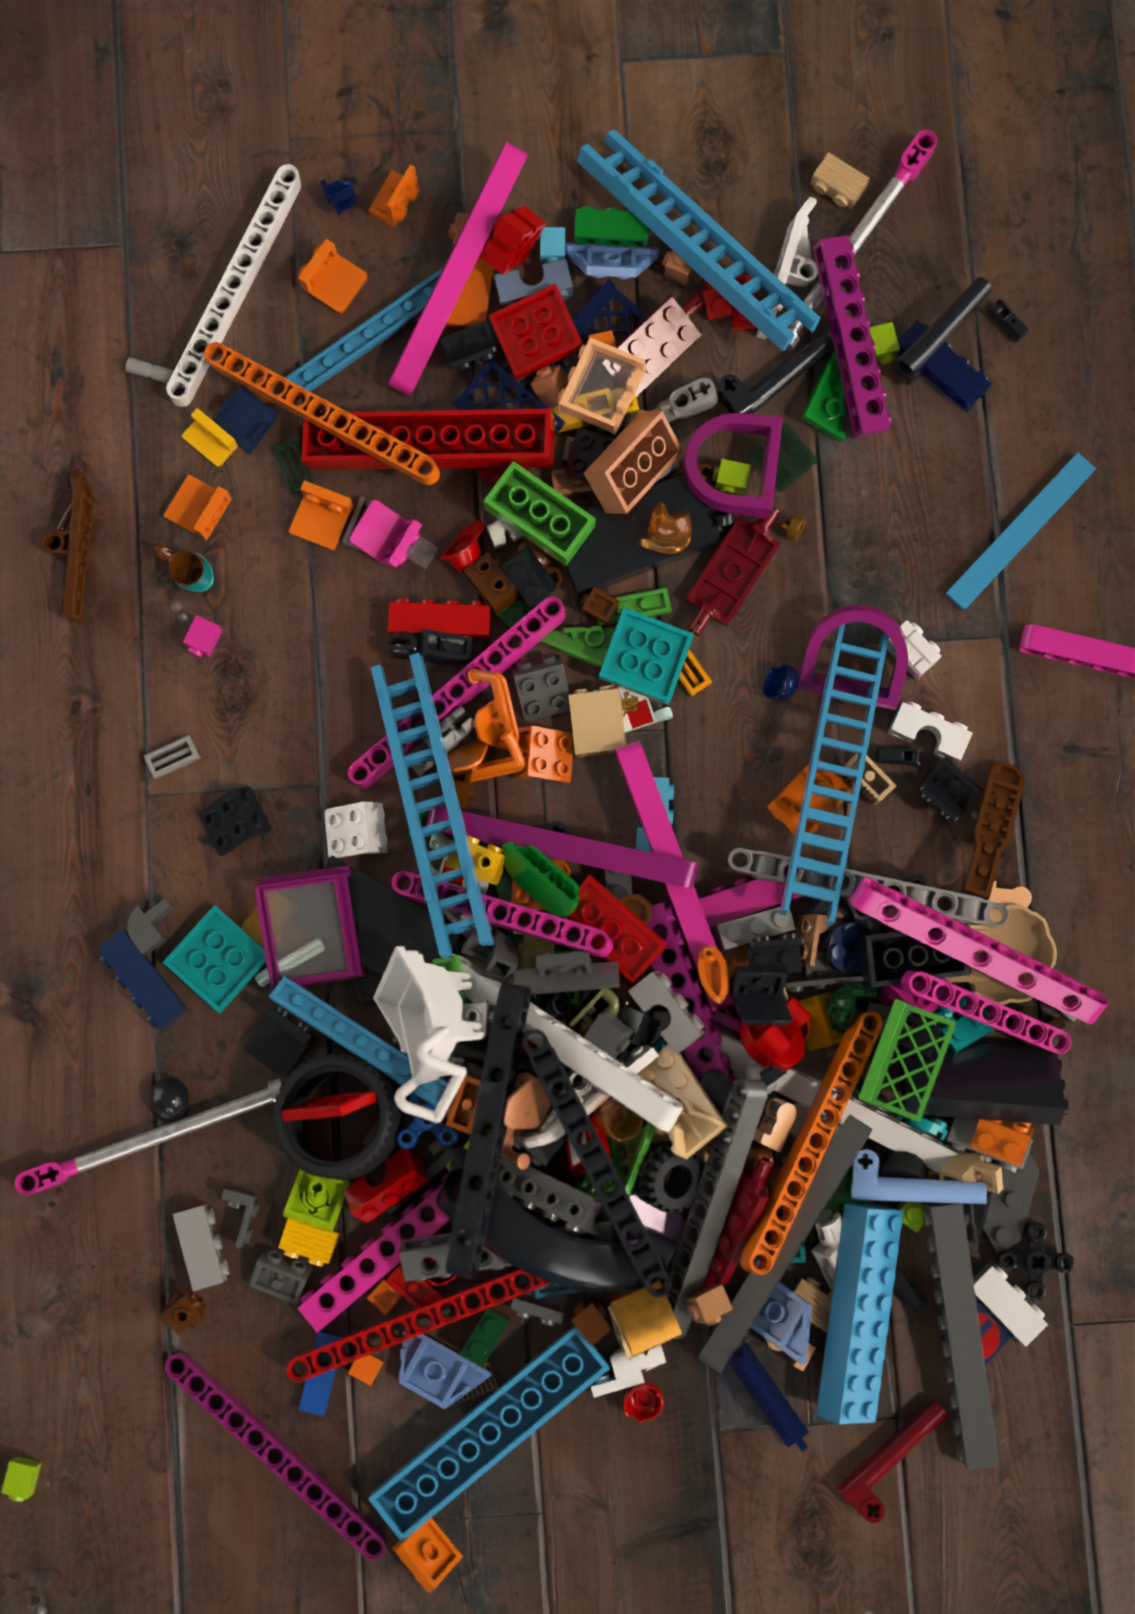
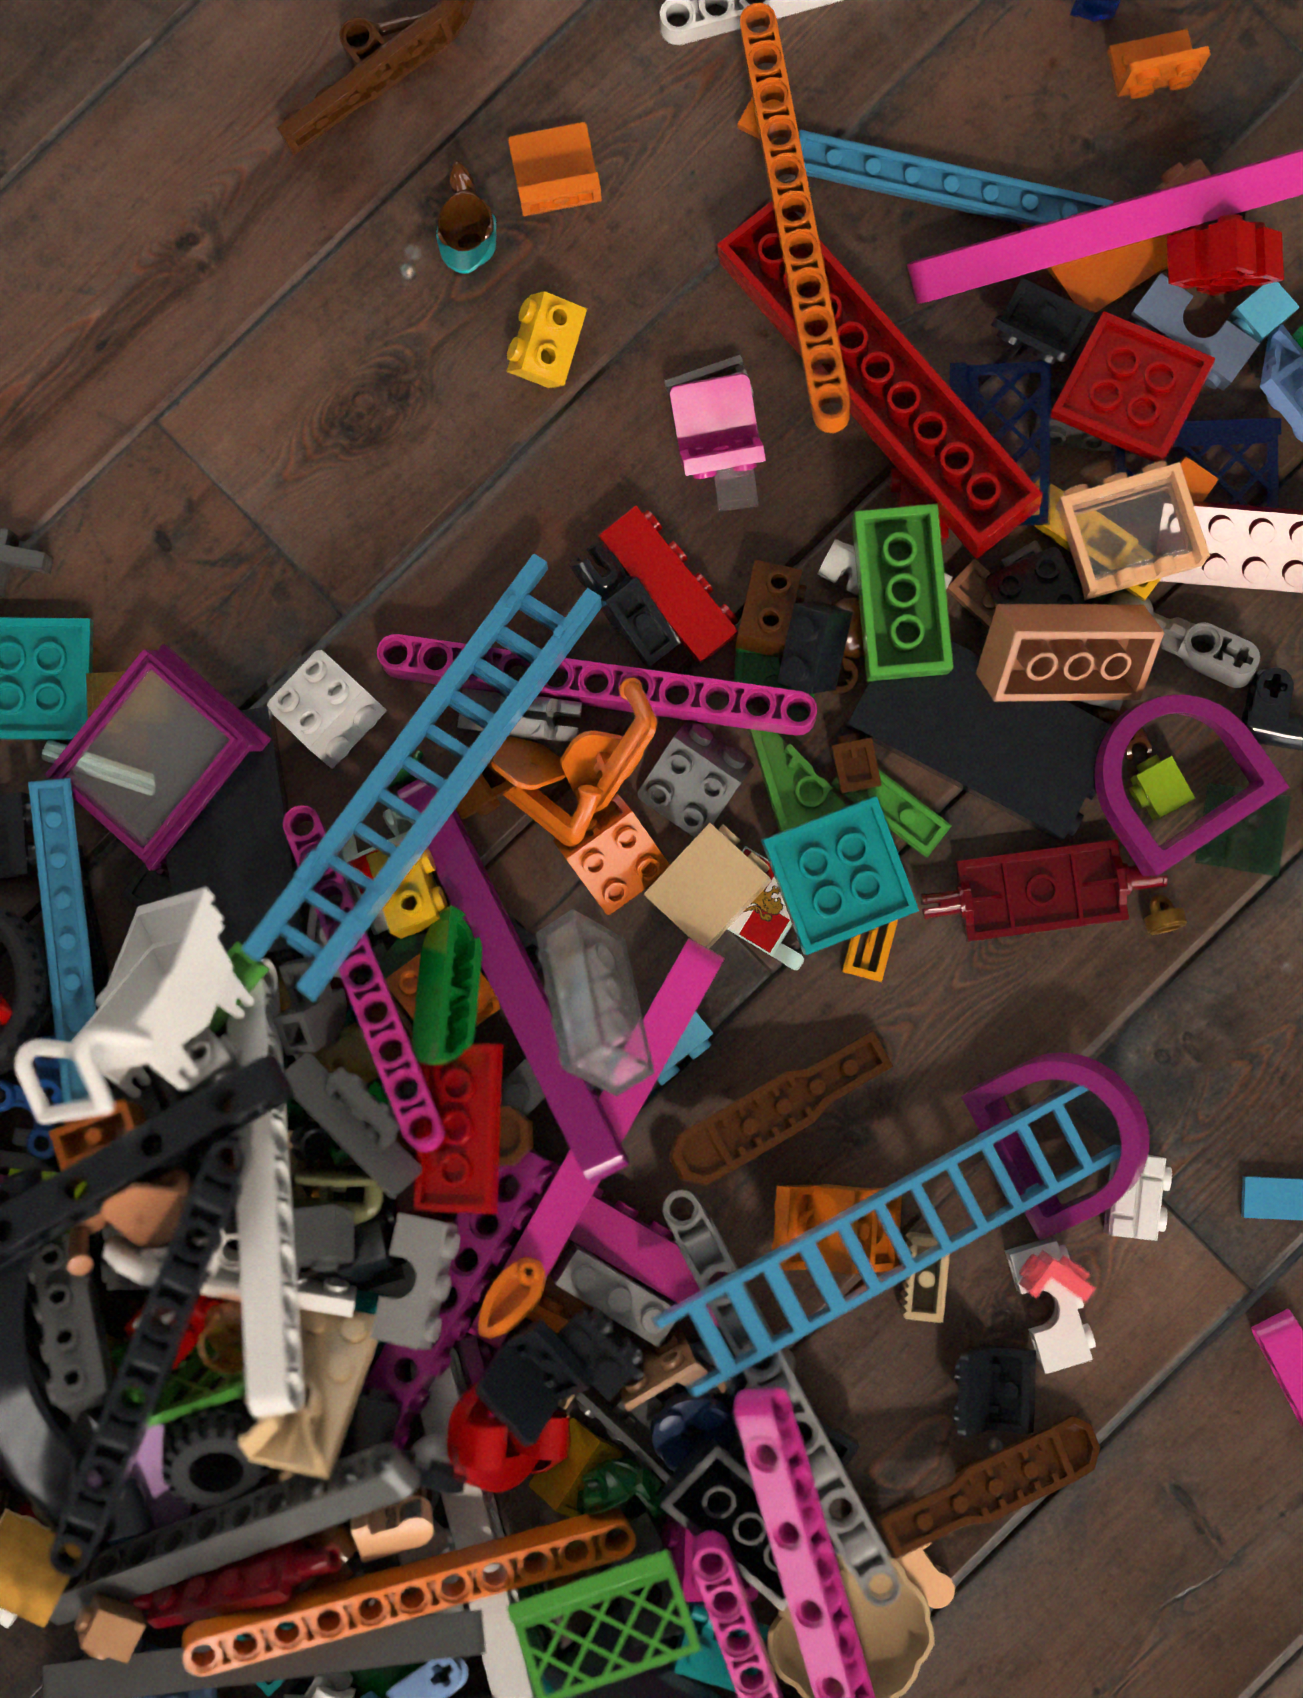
camera: 55 degrees right, 5 degrees up
(152, 766) = (256, 423): light grey tile -> none
(202, 637) = (399, 317): dark pink brick -> none
(209, 439) = (651, 108): yellow panel -> none
(234, 820) = (213, 552): black bracket -> none
(245, 418) = (714, 129): dark blue piece -> none
(274, 578) = (545, 339): none -> yellow brick
(286, 446) = (691, 270): clear green tile -> none
(321, 516) = (672, 328): orange bracket -> none
(331, 277) = (983, 76): orange bracket -> none
(464, 548) = (784, 536): red piece -> none
(548, 384) = (1079, 462): nougat brick -> none
(607, 817) = (594, 1003): none -> clear brick
(668, 533) = (1018, 771): clear orange piece -> none
(722, 519) = (1095, 824): black tile -> none
(730, 780) = (773, 1112): none -> reddish brown piece
(781, 683) = (952, 1068): clear blue hair -> none
(895, 756) = (983, 1287): black bar -> none
(921, 708) = (1039, 1270): none -> coral bracket

